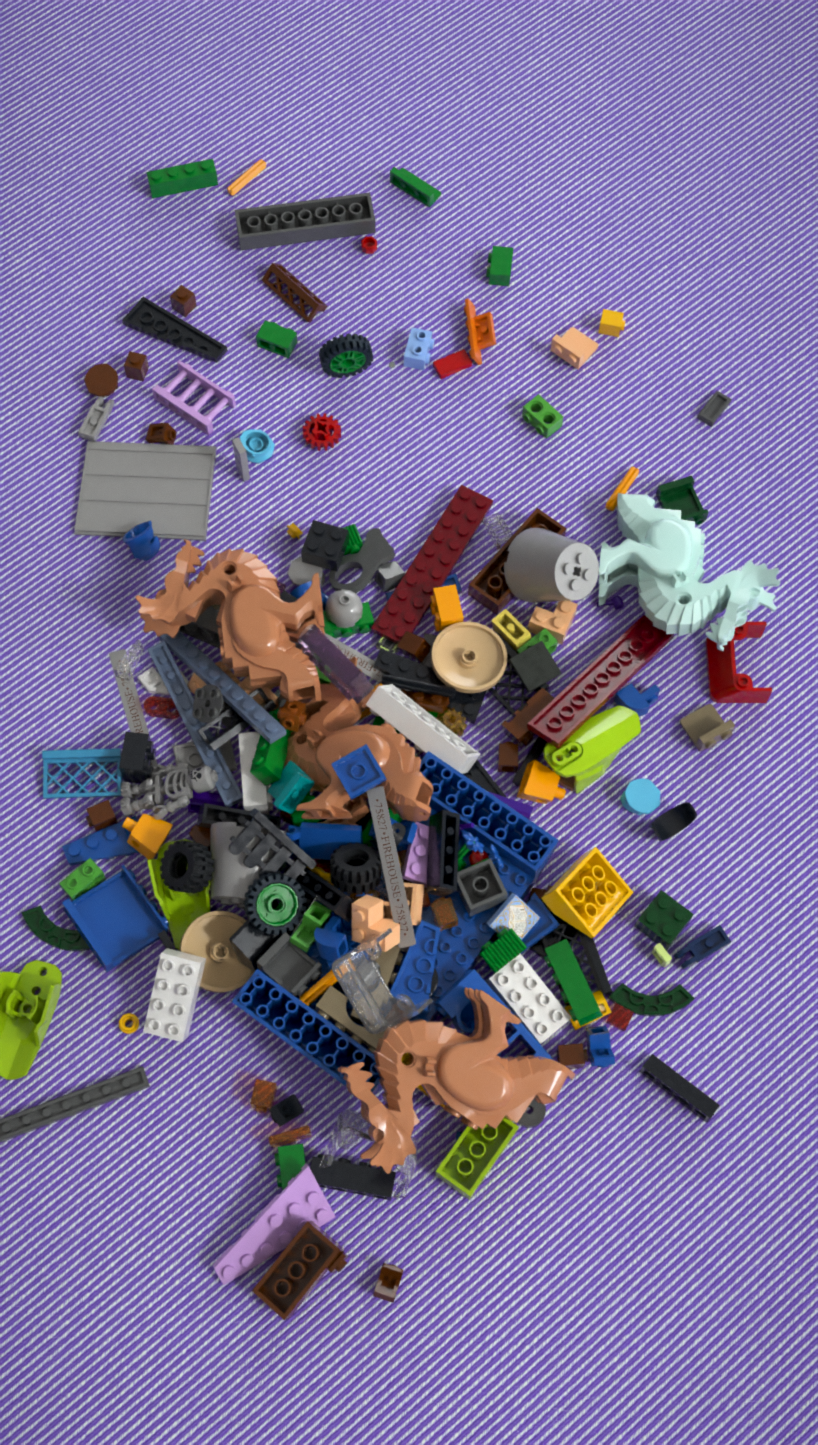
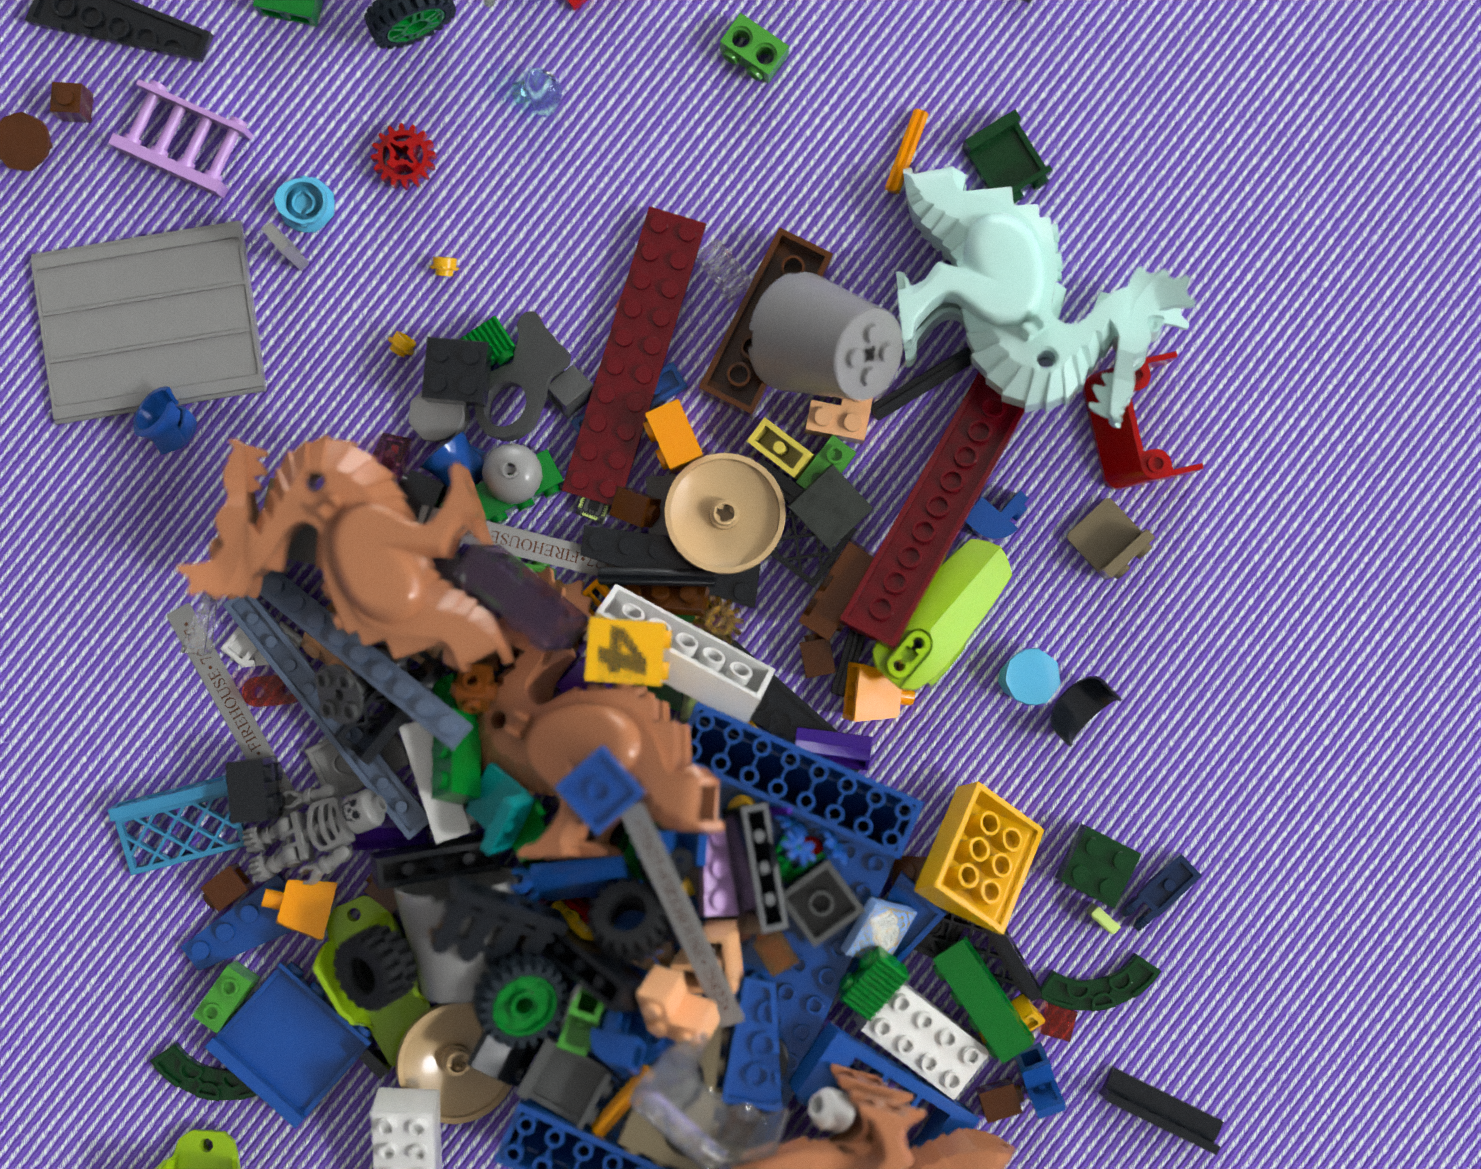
camera: 10 degrees left, 20 degrees up
(95, 419) = (33, 213): light grey hinge -> none
(161, 433) = (146, 217): reddish brown bracket -> none
(330, 494) = (444, 265): none -> yellow plate
(393, 707) = (627, 651): none -> yellow panel
(411, 412) = (539, 88): none -> clear light blue piece
(460, 1015) = (831, 1110): none -> white head
(606, 616) = (921, 384): none -> black axle
(616, 601) = (934, 355): dark purple hand -> none

